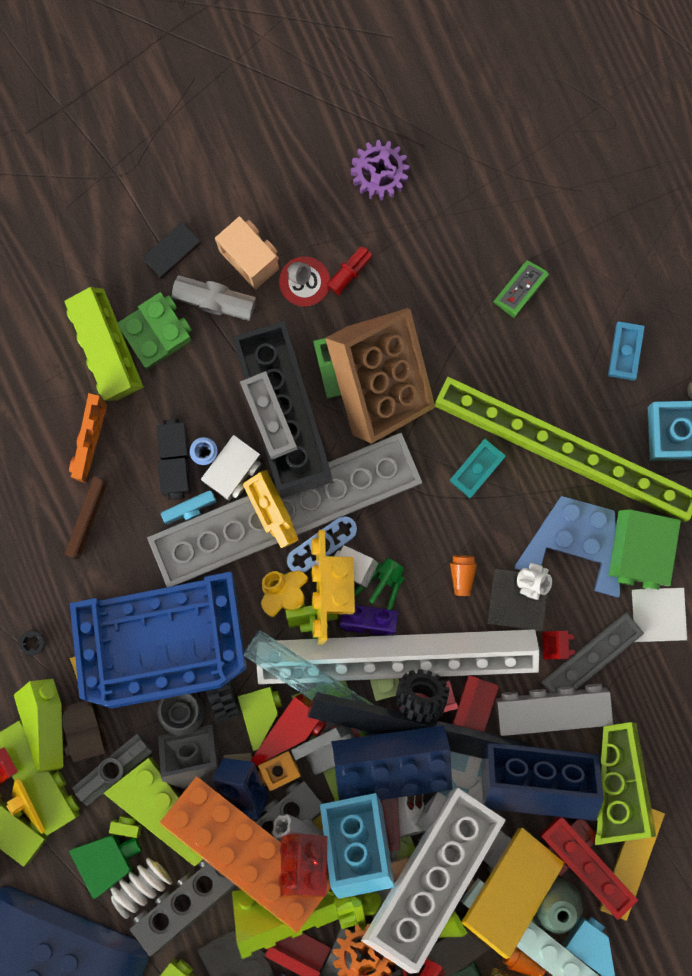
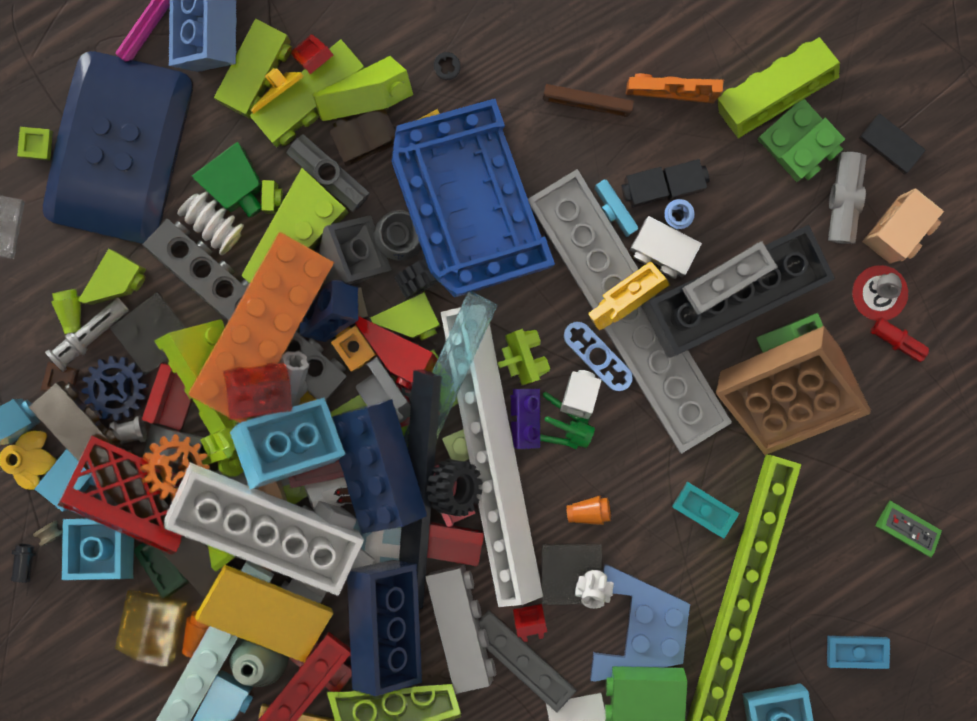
camera: 75 degrees right, 5 degrees up
(282, 591) = (542, 322): yellow plate -> none
(334, 586) = (555, 376): yellow bracket -> none

